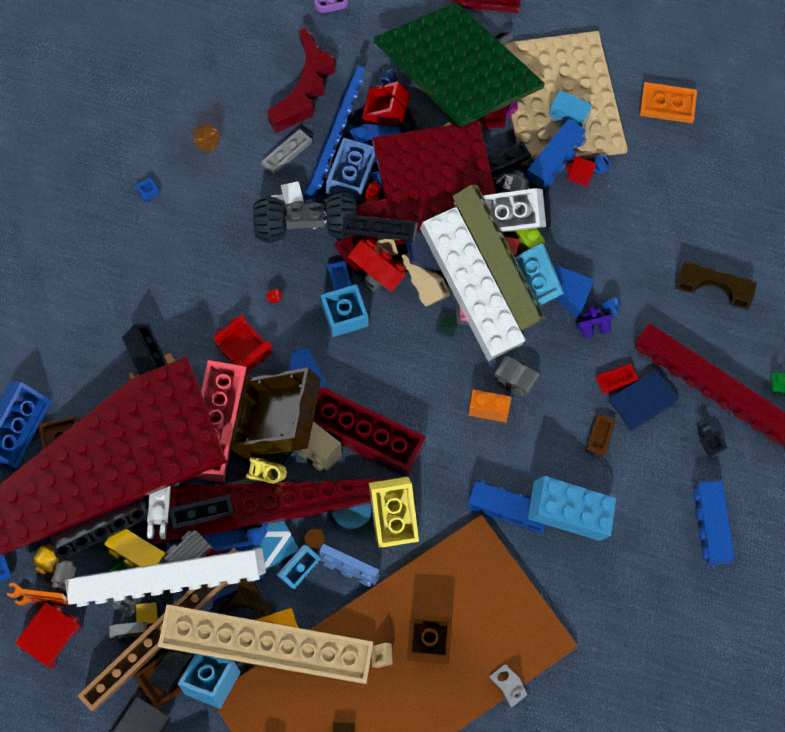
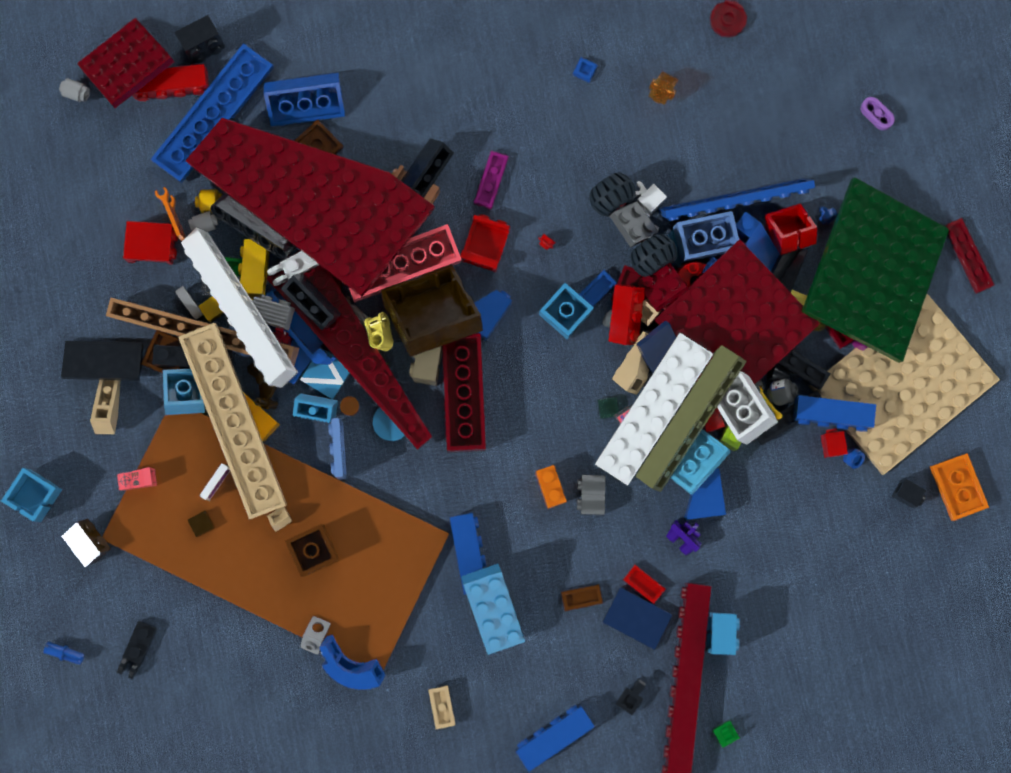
camera: 55 degrees right, 15 degrees up
(181, 63) = (728, 18): none -> dark red tile
(190, 312) = (491, 180): none -> magenta tile
(286, 152) = (695, 167): light grey tile -> none
(299, 104) = (746, 148): dark red arch -> none
(310, 692) = (215, 482): none -> white tile
(380, 228) = (654, 298): black plate -> none
(393, 512) = (403, 459): light yellow brick -> none
(504, 37) = (935, 294): black tile -> none
(561, 671) = (347, 672): none -> blue arch
(570, 107) = (889, 400): dark azure brick -> none
(612, 305) = (711, 544): blue tile -> none
(636, 606) = (441, 707): none -> tan plate
(653, 139) = (909, 493): none -> black brick
(698, 330) = (723, 635): none -> dark azure piece
(738, 290) = (794, 652): dark brown arch -> none

